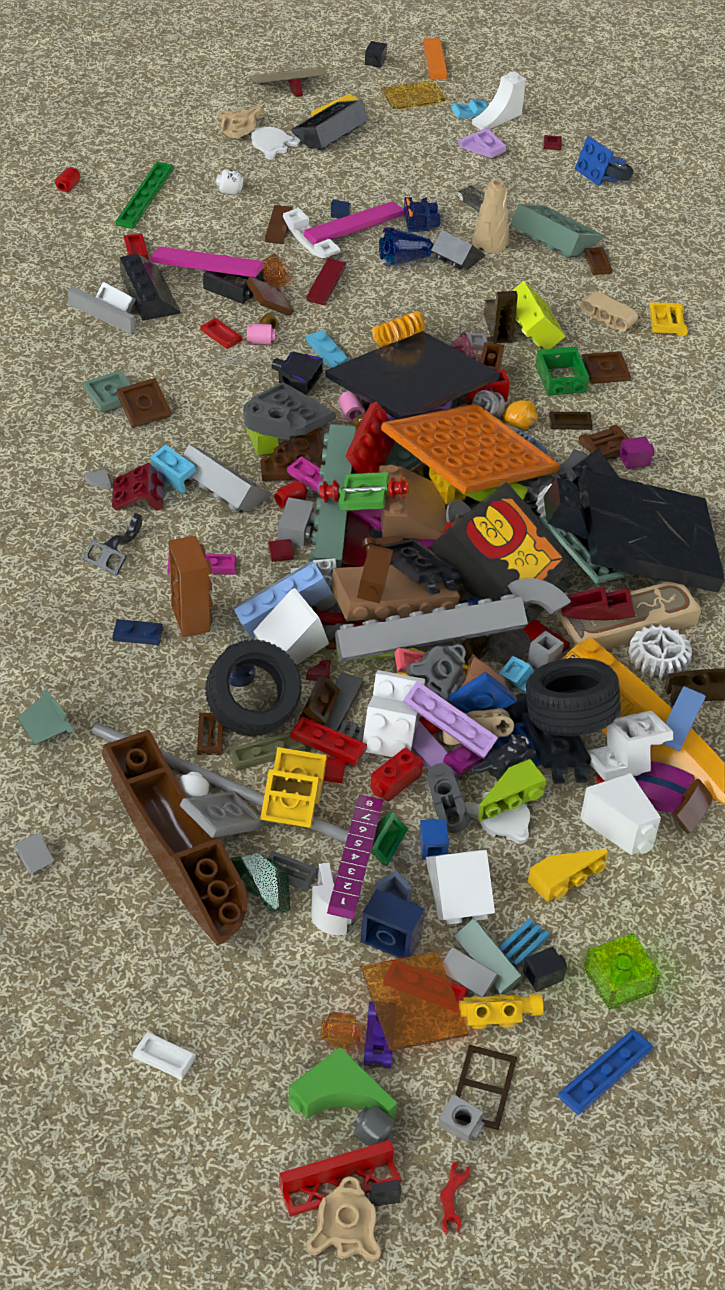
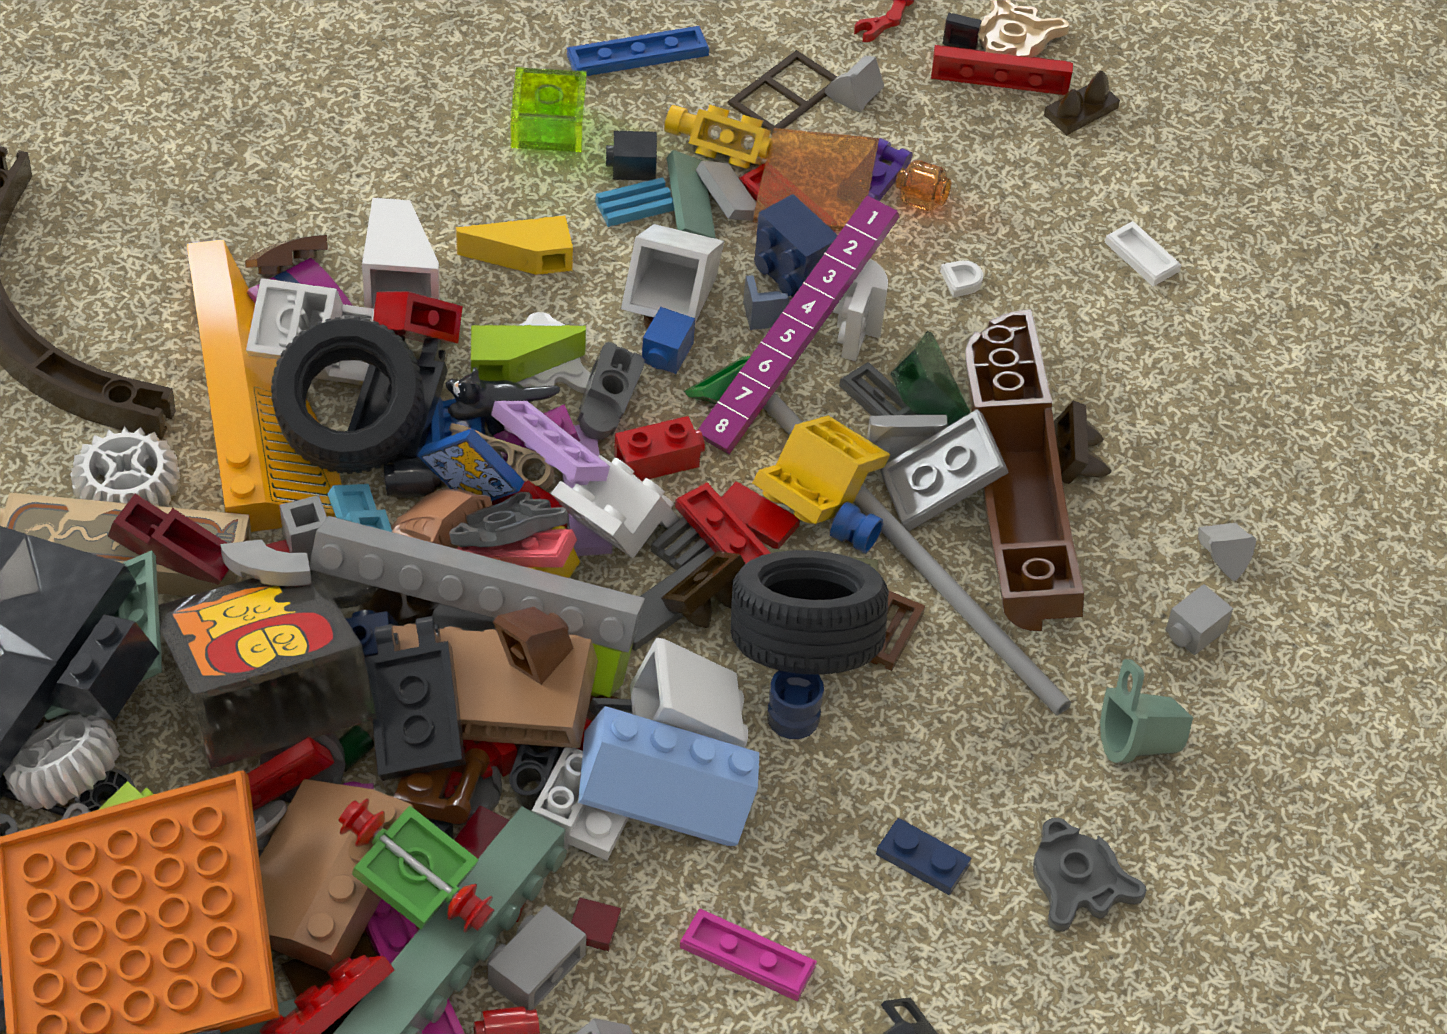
camera: 155 degrees left, 5 degrees up
(34, 797) = (1198, 619): none -> light grey brick
(53, 653) = (1080, 873): none -> dark grey tile
(148, 872) = (1072, 439): none -> dark brown tile
(190, 585) = (824, 809): dark orange brick -> none
(194, 784) = (967, 538): white head -> none
(256, 774) = (856, 527): none -> blue wheel
(258, 836) = (902, 432): none -> light grey slope
(262, 1172) = (1083, 105): none -> dark brown tile
(279, 980) = (962, 277): none -> white tile
(338, 1083) = (958, 139): bright green arch -> none
(373, 1126) = (939, 88): dark grey head -> none
(431, 1102) = (857, 85): none -> light grey tile
(455, 1108) = (836, 53): light grey brick -> none
(579, 773) = (418, 316): none -> red brick
(683, 716) = (202, 337): medium blue tile -> none

